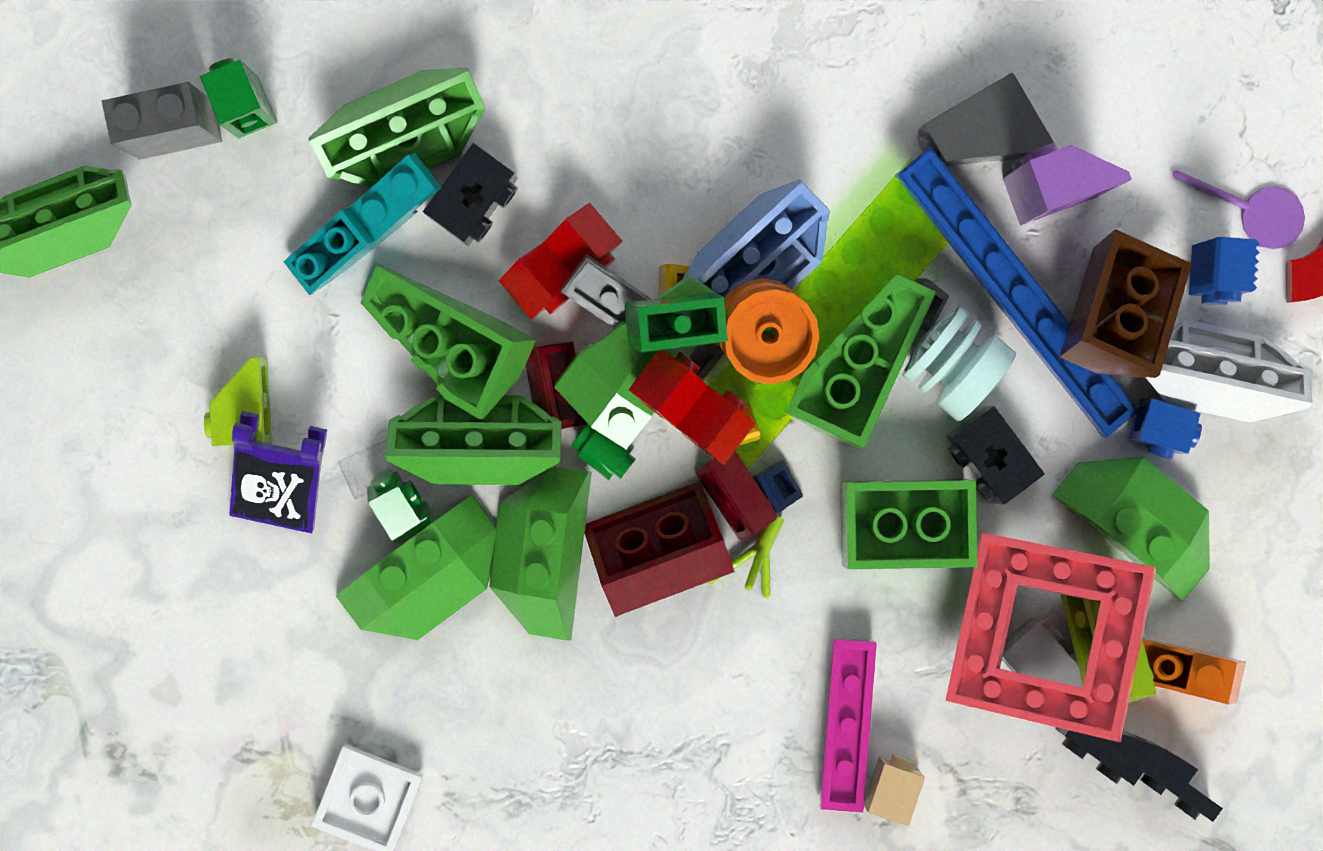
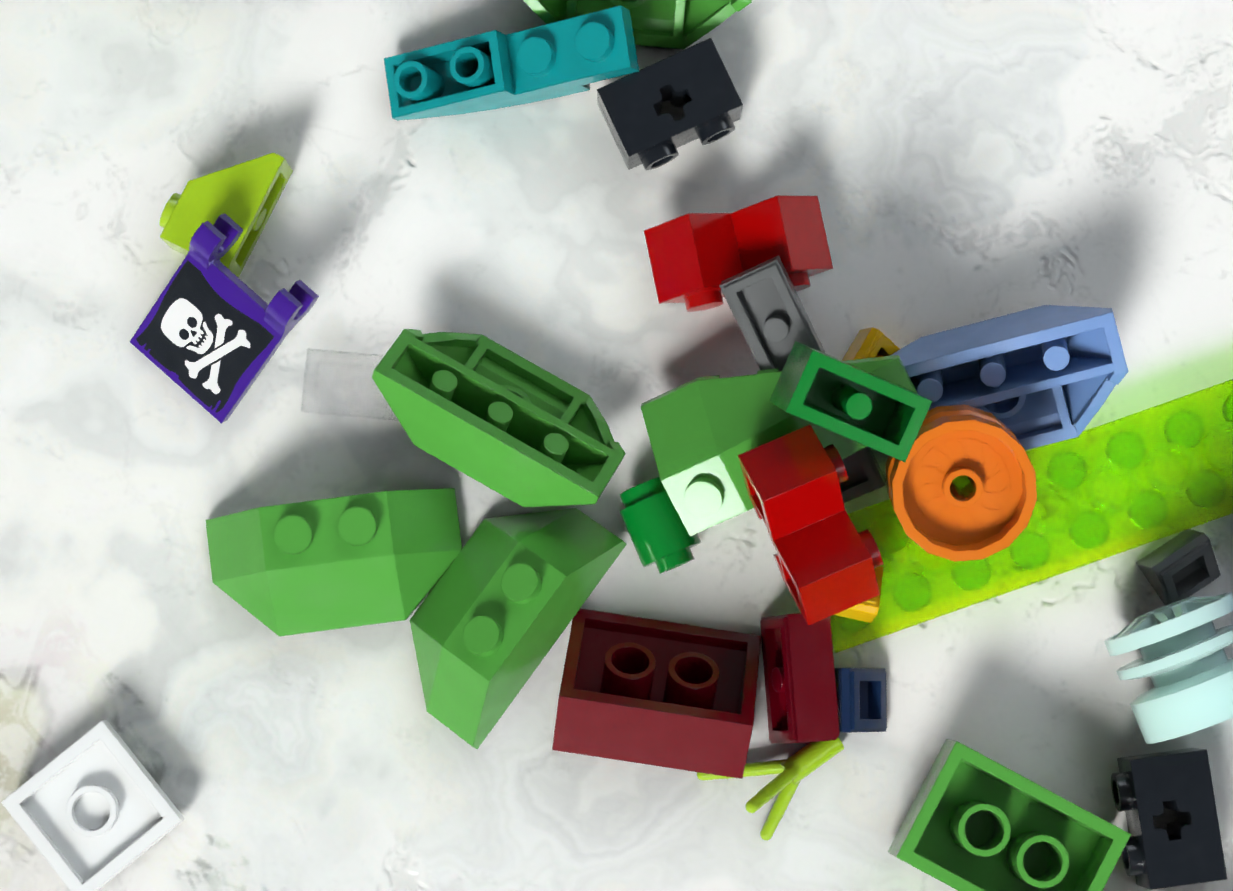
camera: 30 degrees right, 5 degrees down
(397, 505) = (352, 445): brick -> none
(458, 346) = (544, 286): bright green wedge -> none
(543, 370) = (639, 376): dark red slope -> none
(857, 371) = (1043, 606): bright green wedge -> none

